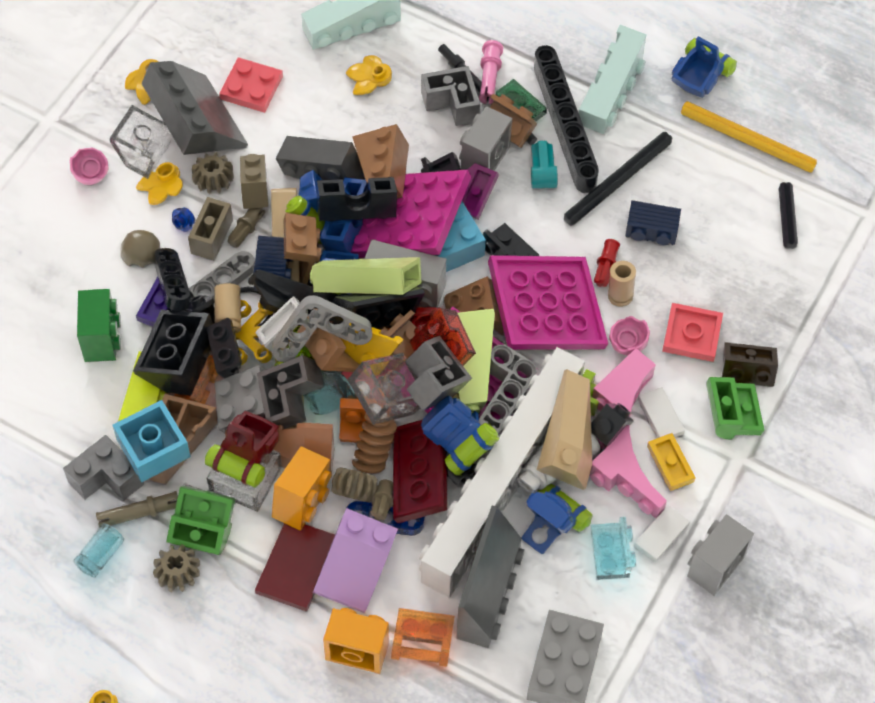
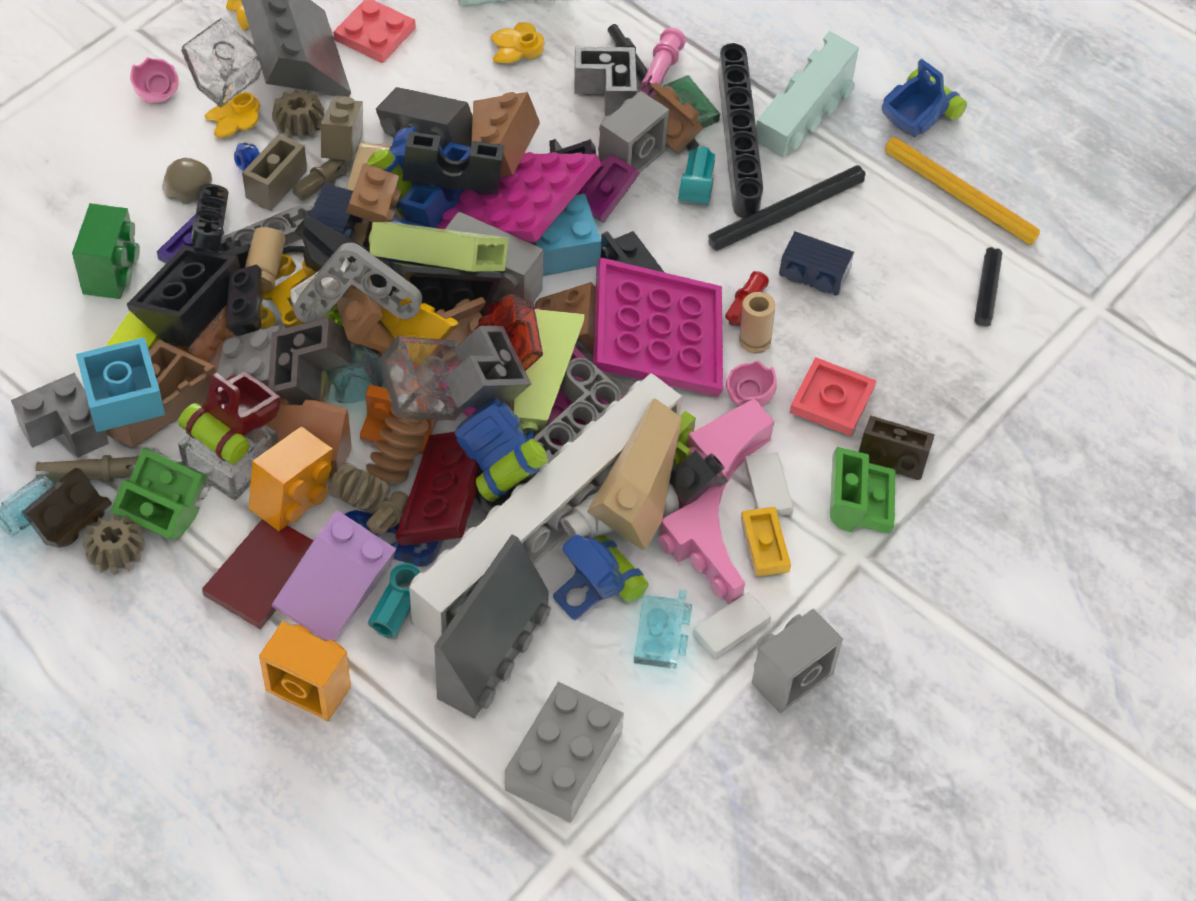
camera: 10 degrees right, 5 degrees down
(132, 548) = (66, 509): none -> dark brown bracket
(406, 569) = (394, 603): none -> teal piece
(425, 628) = (397, 676): clear orange plate -> none

